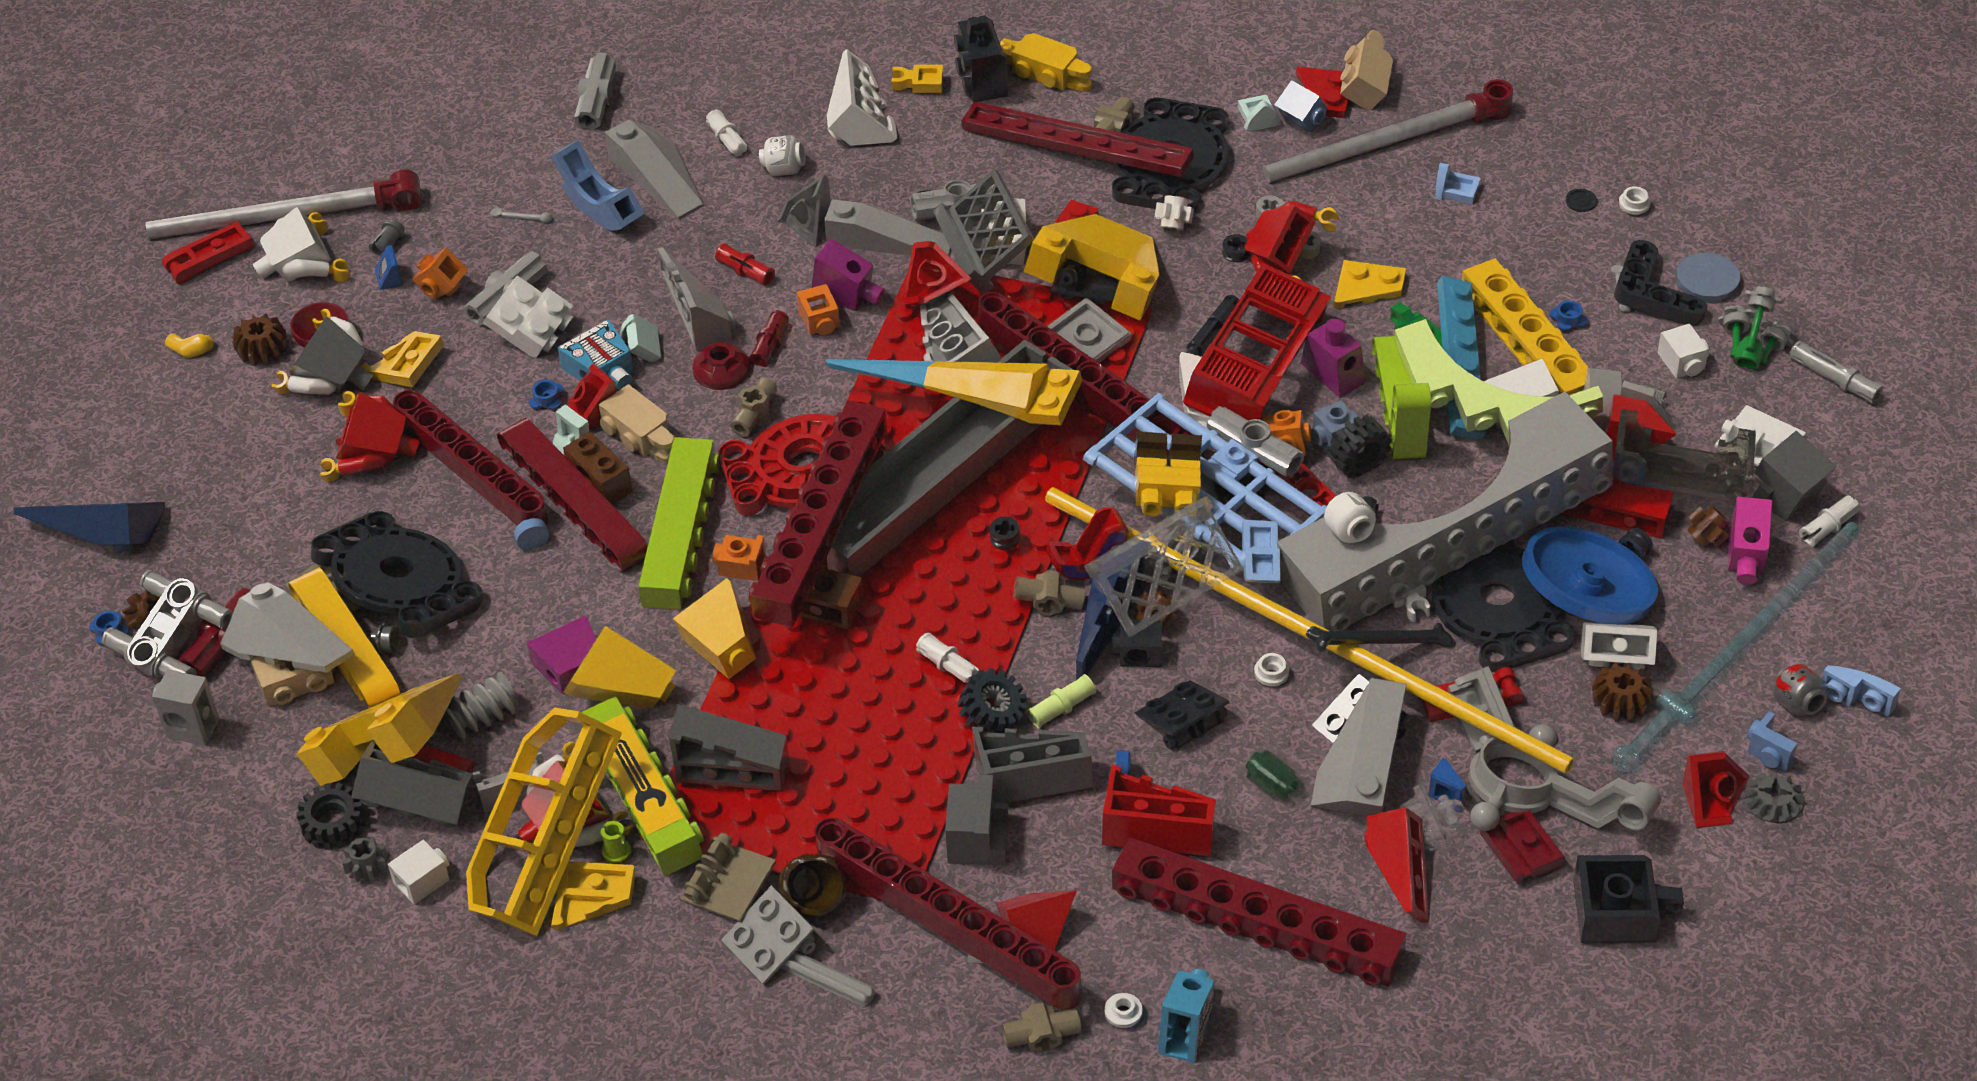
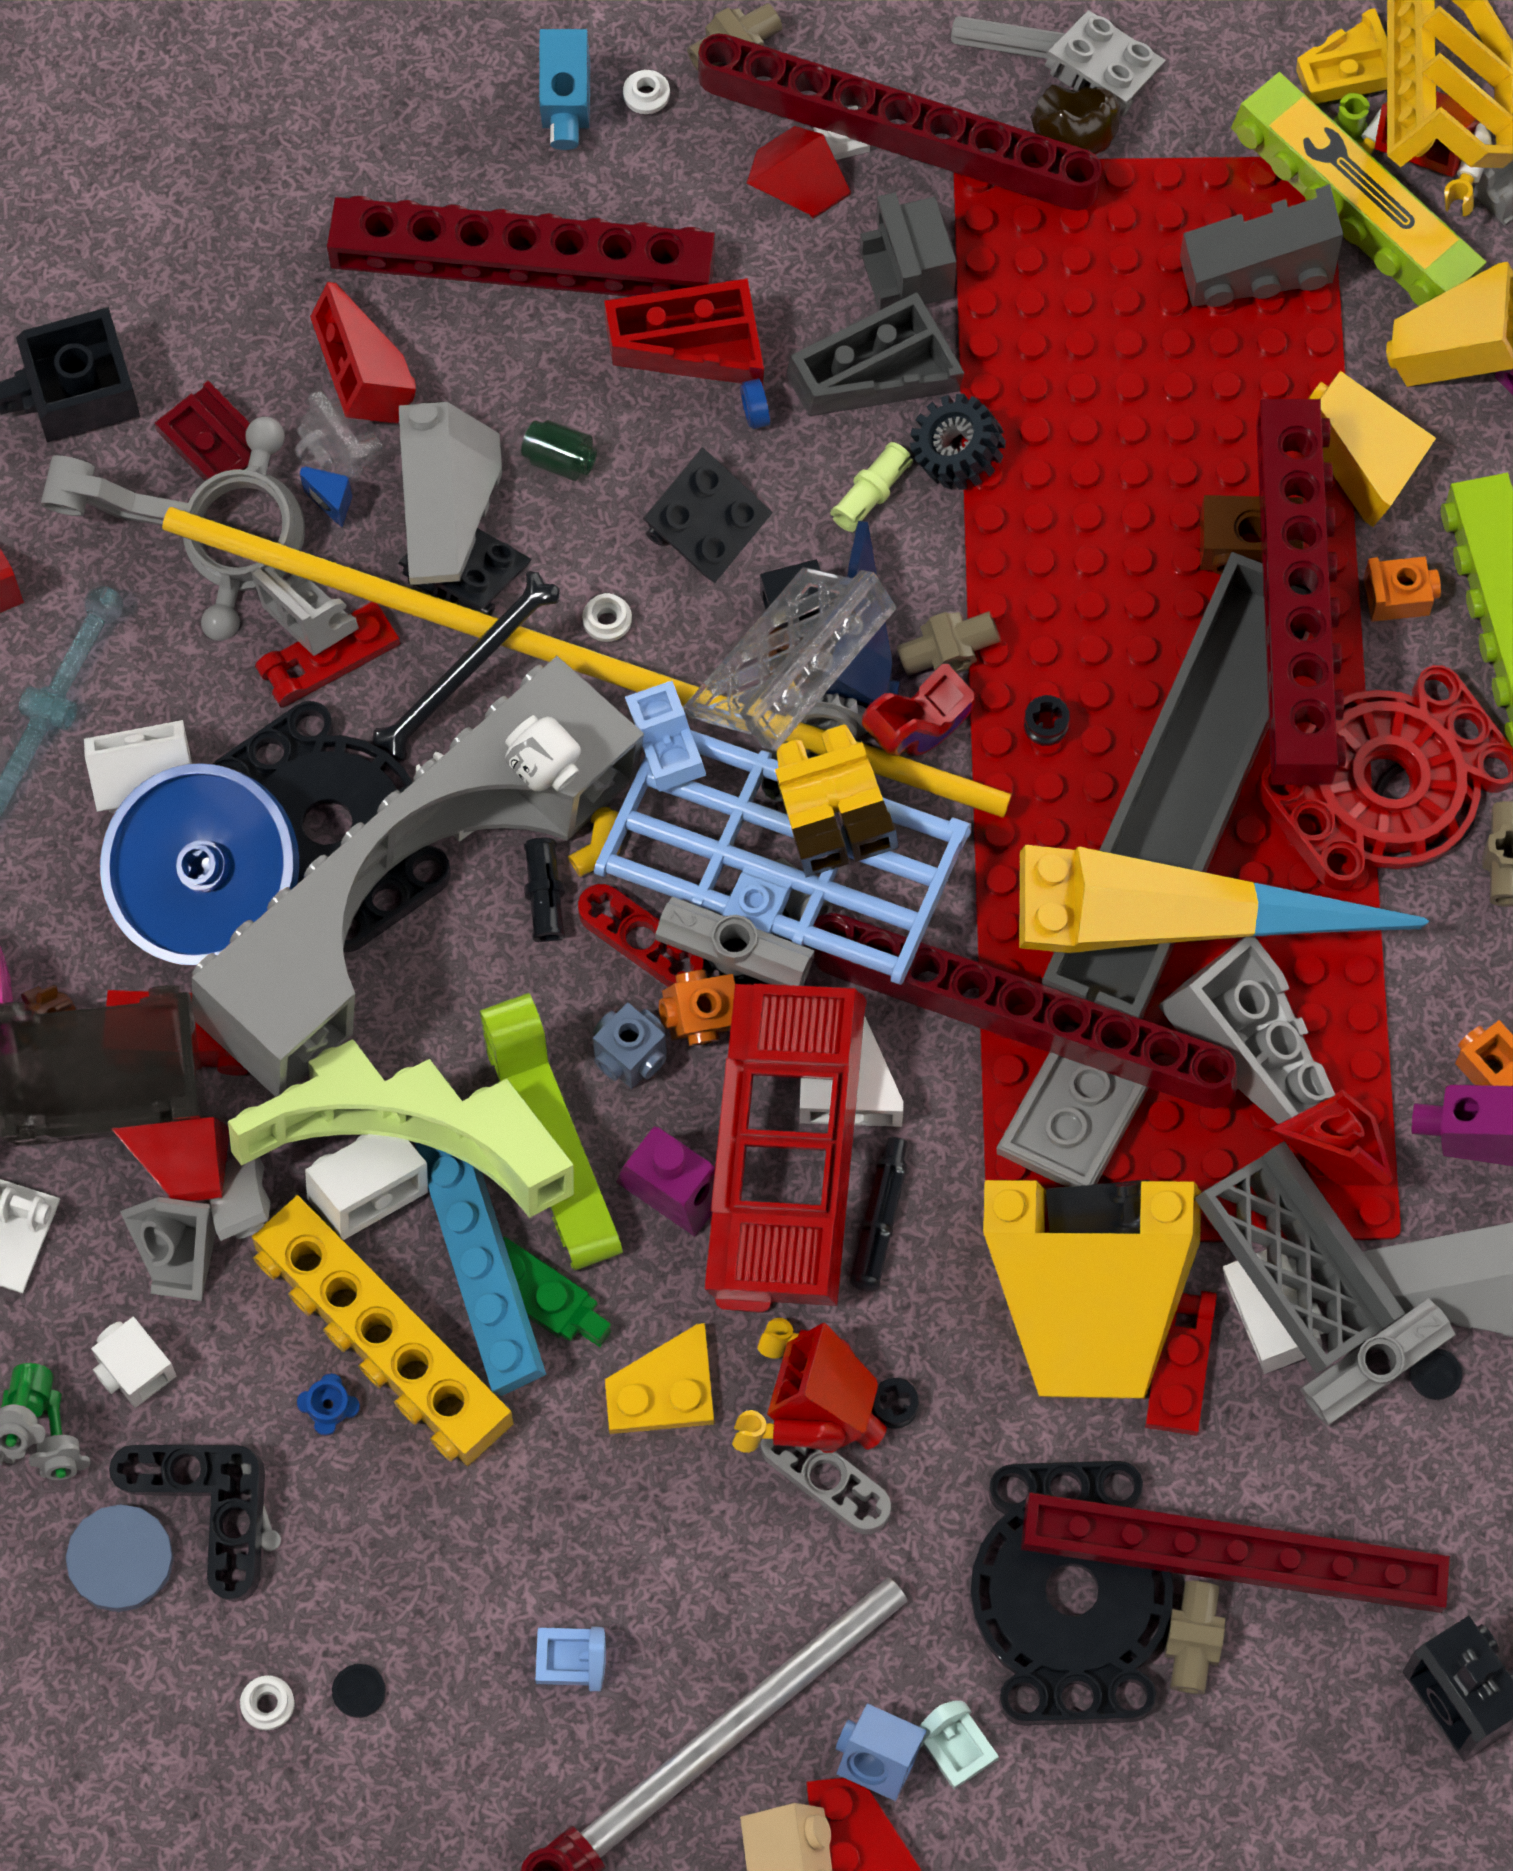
camera: 160 degrees right, 20 degrees up
(727, 879) = (1189, 114): dark tan hinge -> none
(946, 657) = (1043, 490): white axle -> none
(1047, 62) = (1365, 1750): yellow hinge -> none
(1174, 212) = (1016, 1434): white gear -> none
(1359, 446) = (581, 1005): black tyre -> none
(1622, 691) = (106, 694): reddish brown gear -> none
(1637, 541) = (146, 963): black bush -> none

